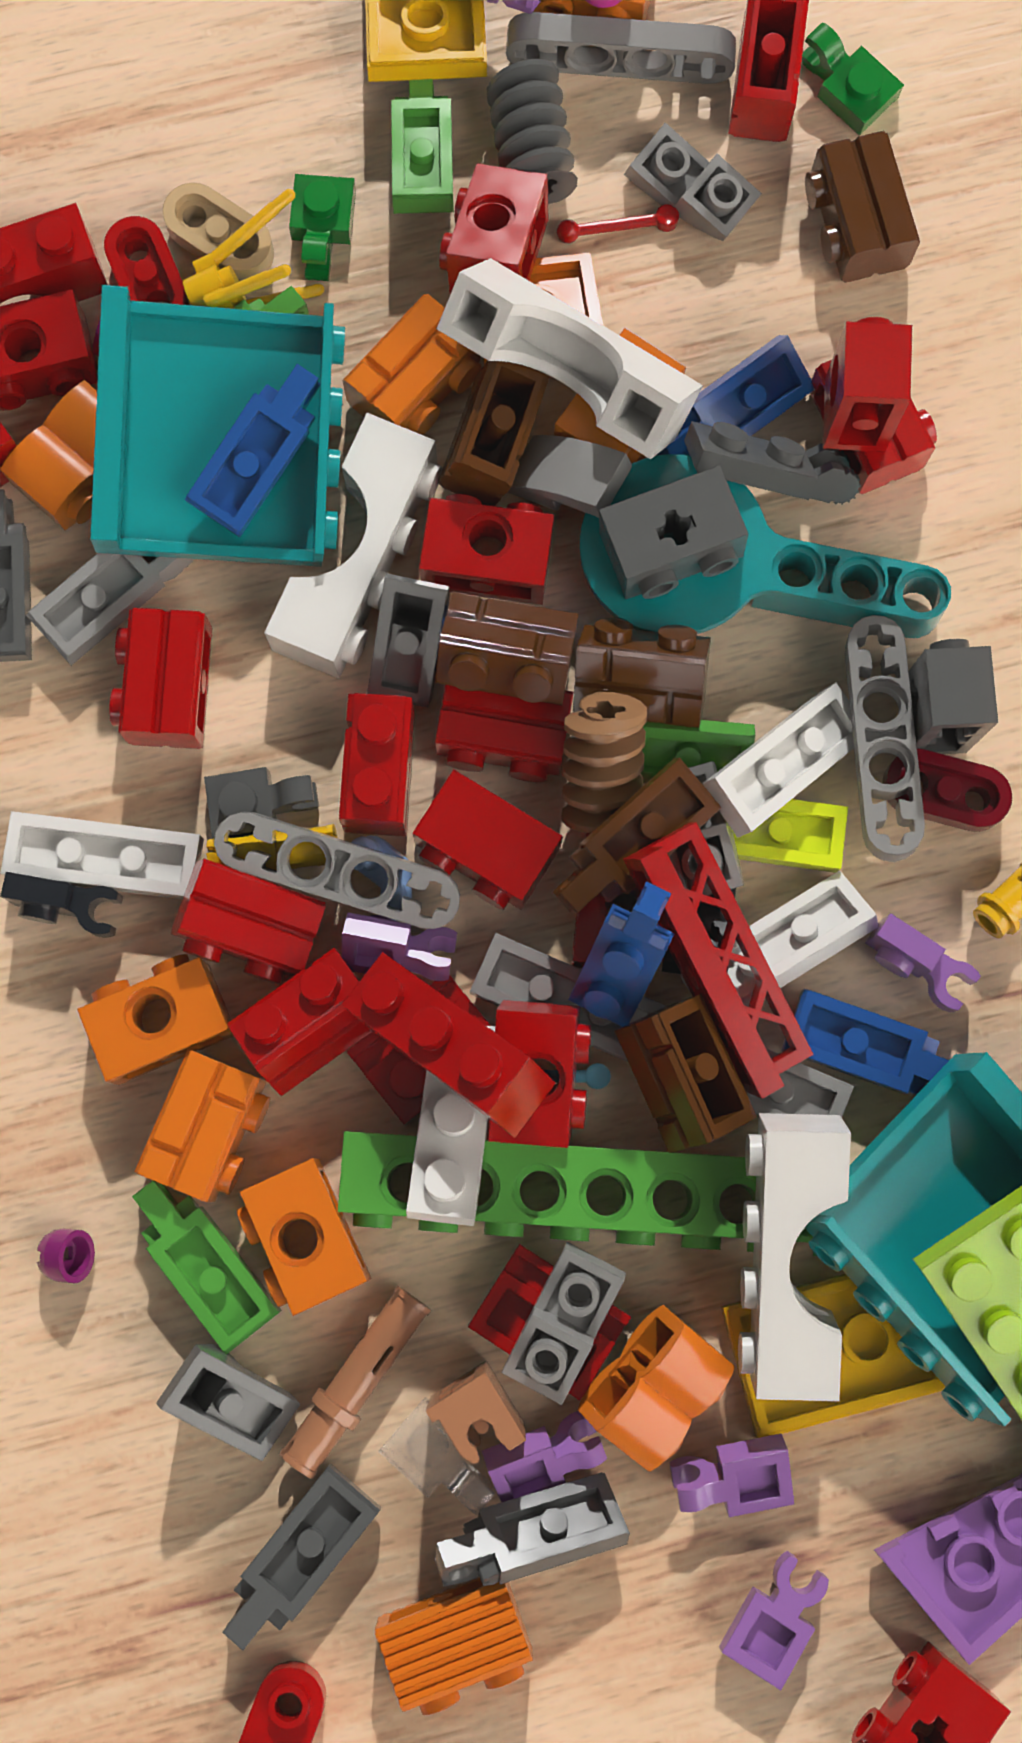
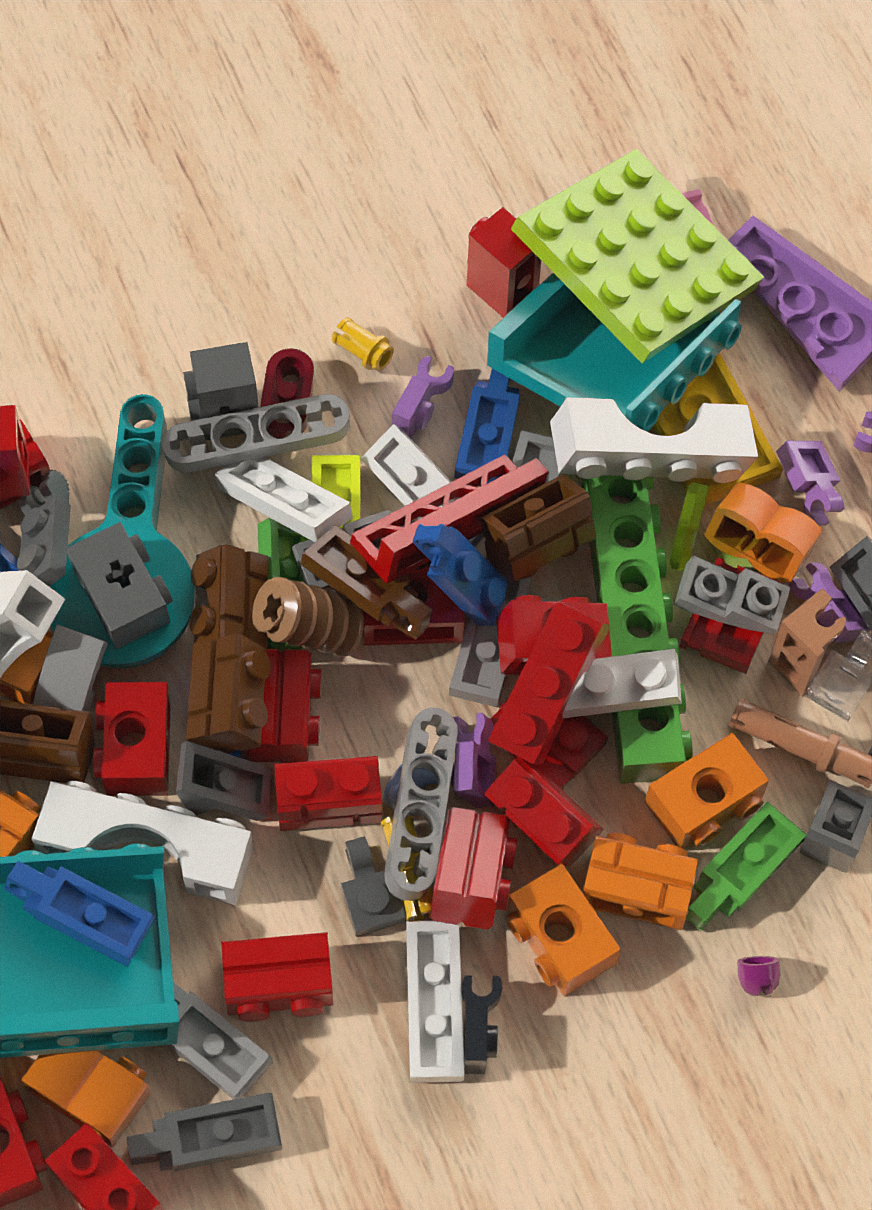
camera: 100 degrees left, 15 degrees down
(486, 842) = (378, 705): red brick -> none
(671, 1283) = (688, 525): none -> clear neon green tile

